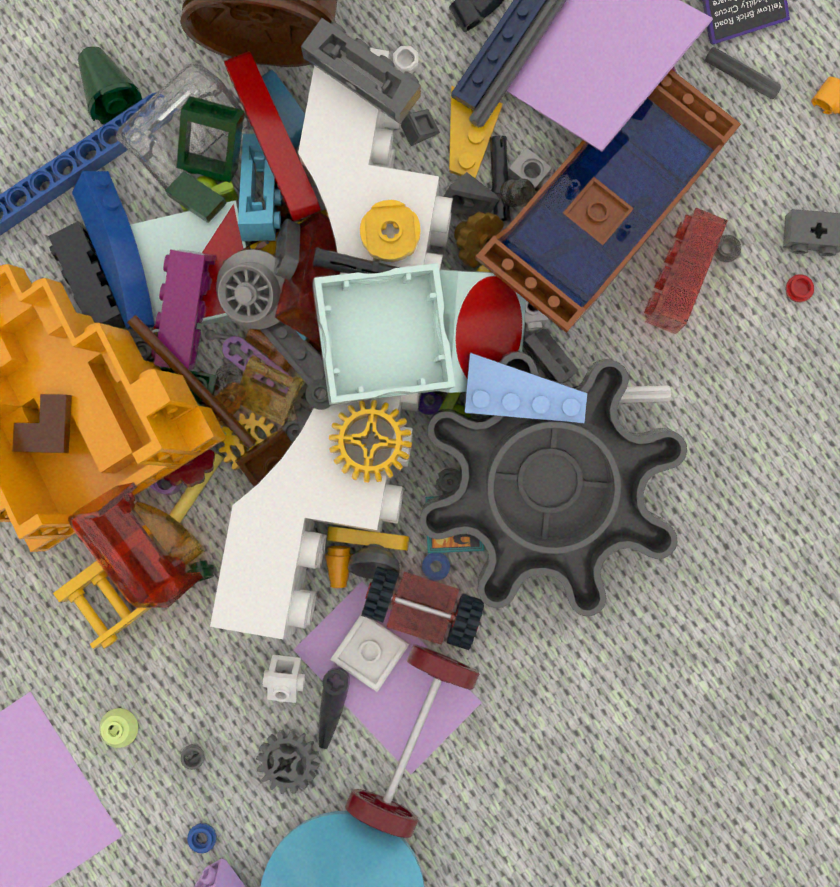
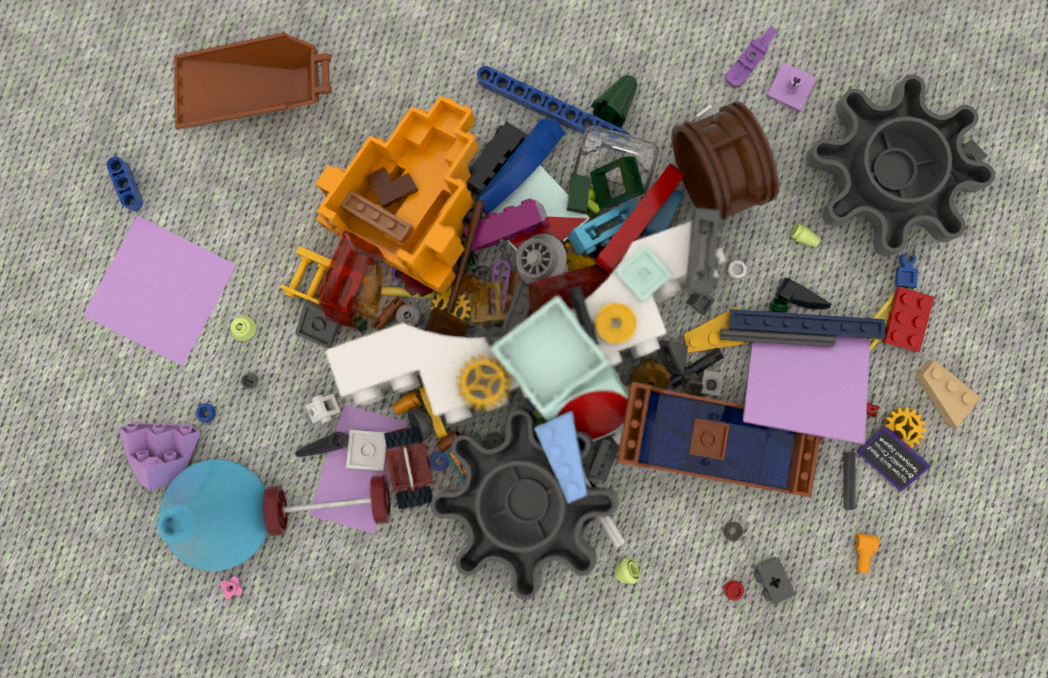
camera: 60 degrees right, 0 degrees up
(74, 467) = (376, 217): none -> medium nougat plate
(170, 628) = (315, 327): none -> dark grey tile
(209, 526) = (388, 314): none -> dark orange pin
(219, 494) = (415, 318): none -> light grey head
(283, 751) = (272, 443): dark grey gear -> none
(287, 249) = (574, 267): dark grey beam -> none
(347, 161) = (643, 274): none -> light aqua tile
(417, 539) = (446, 442): none -> dark orange pin
(479, 34) = (779, 305): none -> dark green plate
(686, 270) = (703, 513): clear red brick -> none
(706, 405) = (627, 571): none -> yellowish green cone

